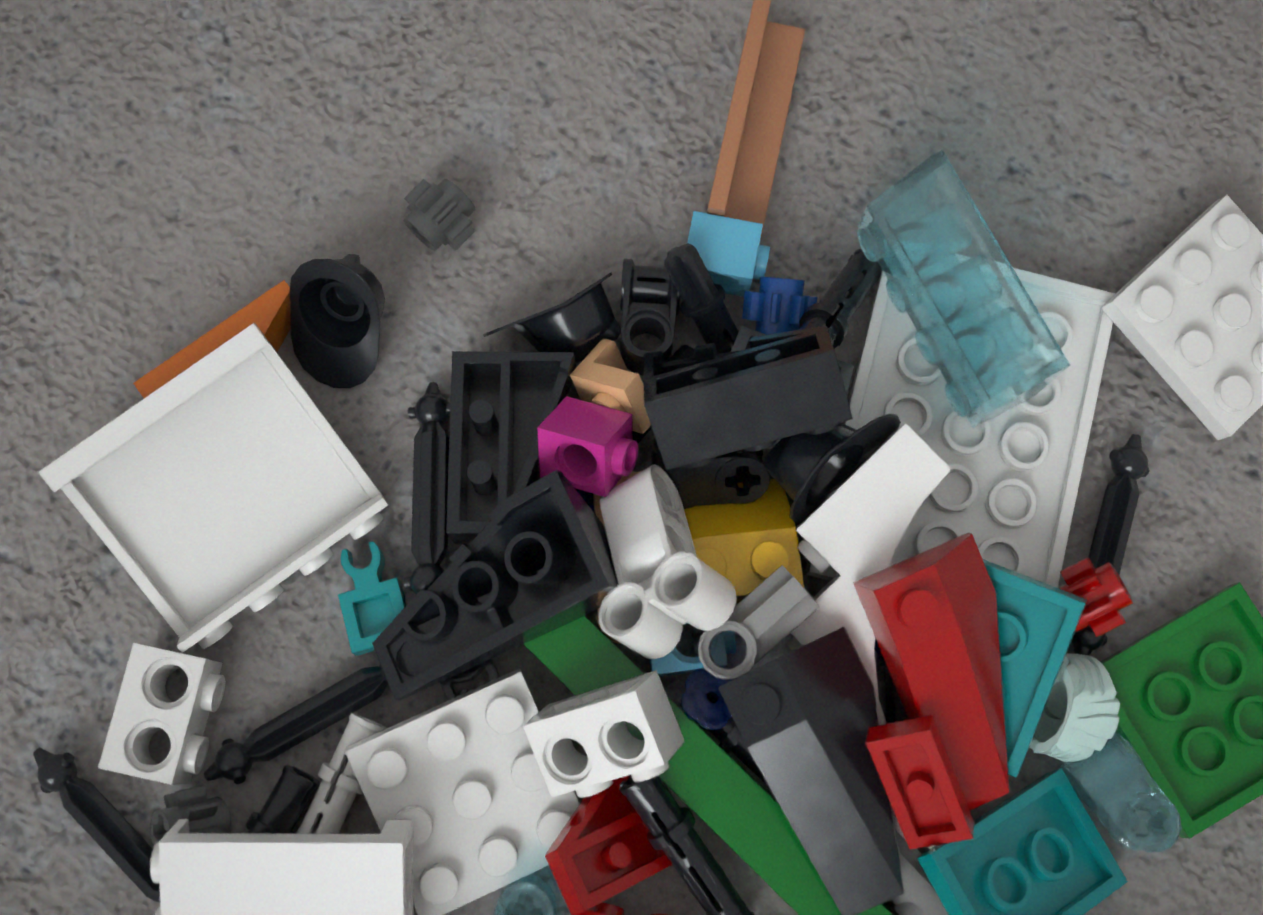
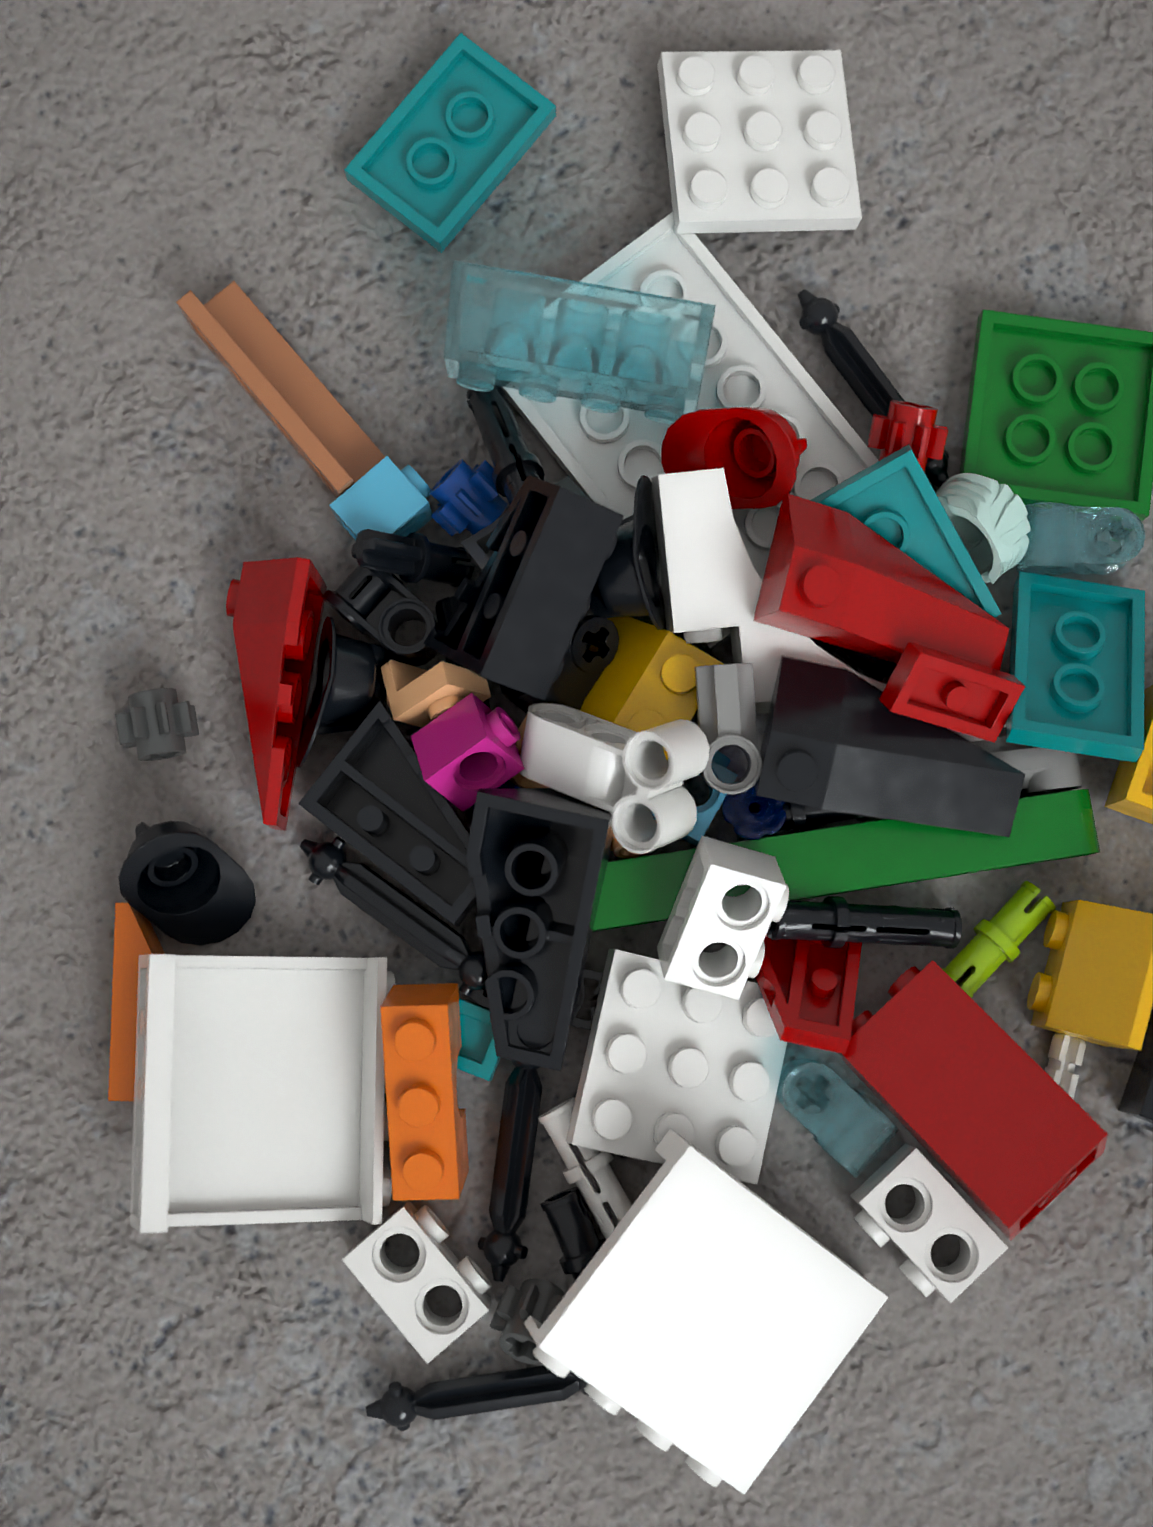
camera: 50 degrees left, 5 degrees up
(276, 631) = (421, 1091): none -> orange arch
(556, 258) = (276, 641): none -> red wedge
(985, 479) = (750, 444): none -> red piece
(1032, 101) = (450, 142): none -> teal plate

